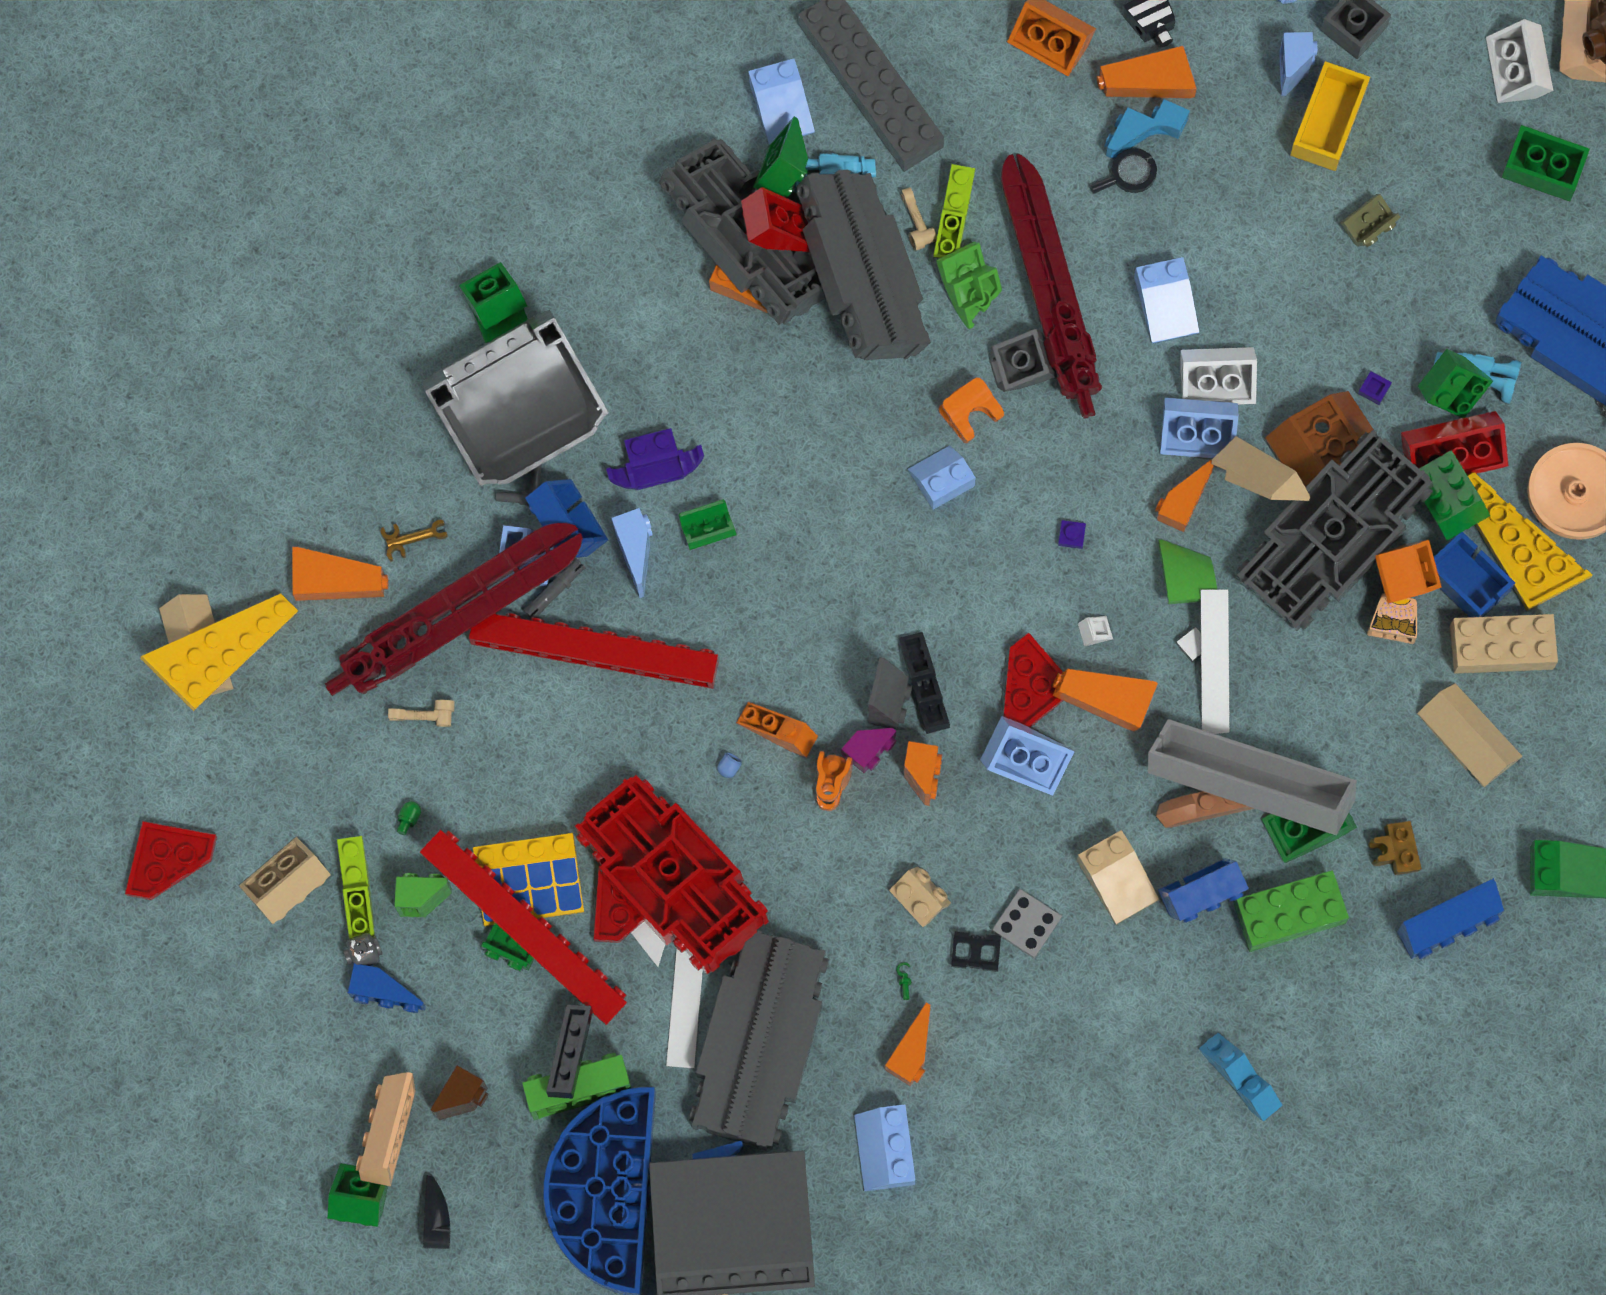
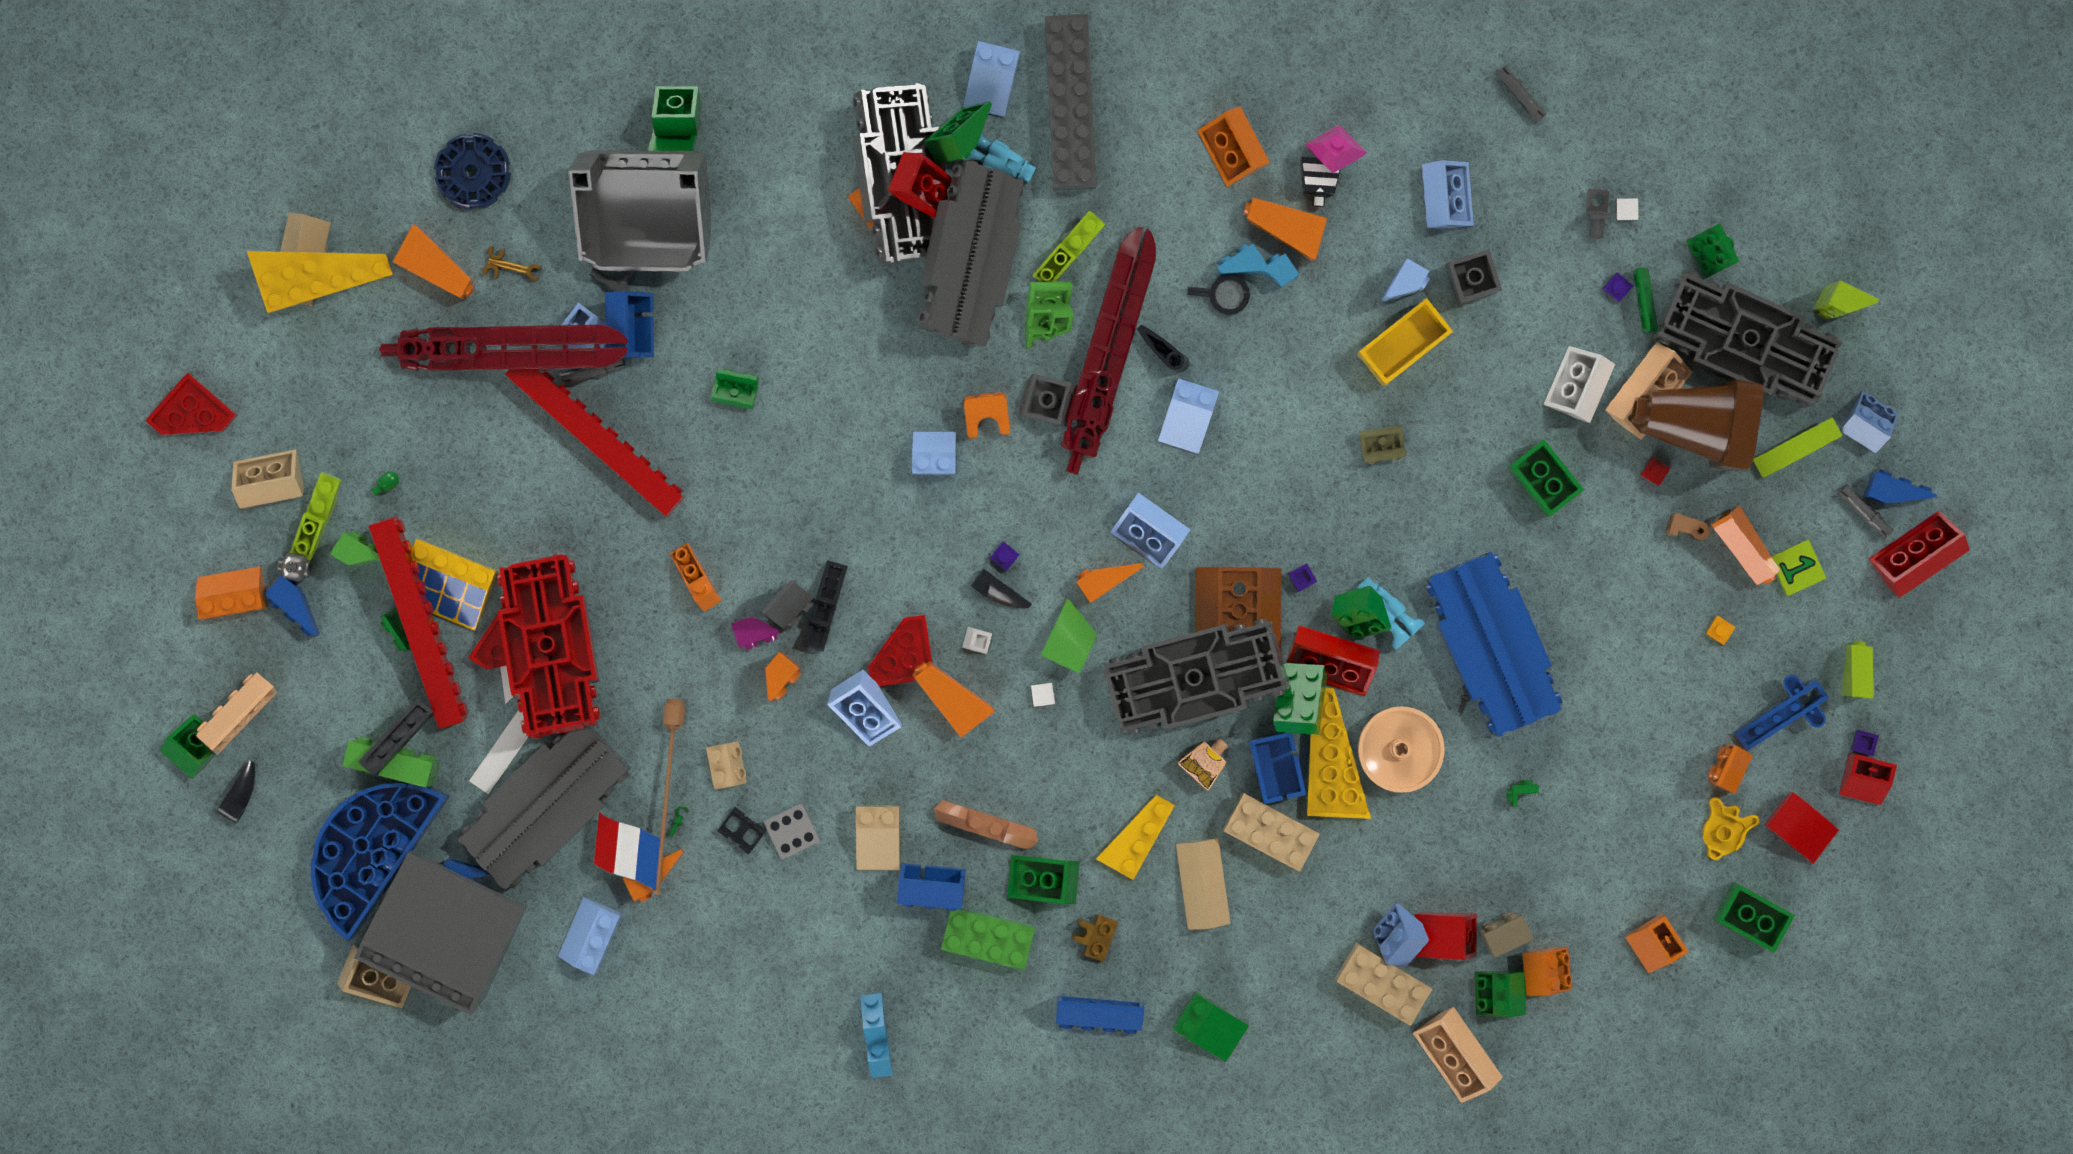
camera: 25 degrees right, 15 degrees up
(311, 1017) = (230, 593): none -> orange slope
(324, 482) = (484, 176): none -> dark blue plate
(442, 713) = (454, 418): tan brick -> none
(460, 1095) = (304, 718): reddish brown slope -> none
(633, 536) = (669, 374): light blue slope -> none
(654, 461) = (725, 314): dark purple plate -> none
(728, 766) = (642, 585): medium blue piece -> none
(833, 777) = (712, 638): orange piece -> none
(877, 1031) = (630, 849): none -> flag
(922, 235) = (1035, 252): tan brick -> none
(1077, 569) = (998, 591): none -> black piece
(1105, 252) = (1164, 350): none -> black piece
(1215, 661) = (1048, 718): white sticker -> none
(1219, 375) = (1190, 498): white slope -> none
(1252, 776) = (1016, 827): light grey piece -> none
(1259, 472) = (1164, 601): tan slope -> none
(1375, 736) = (1134, 842): none -> yellow wing
(1408, 571) = (1230, 740): orange slope -> none

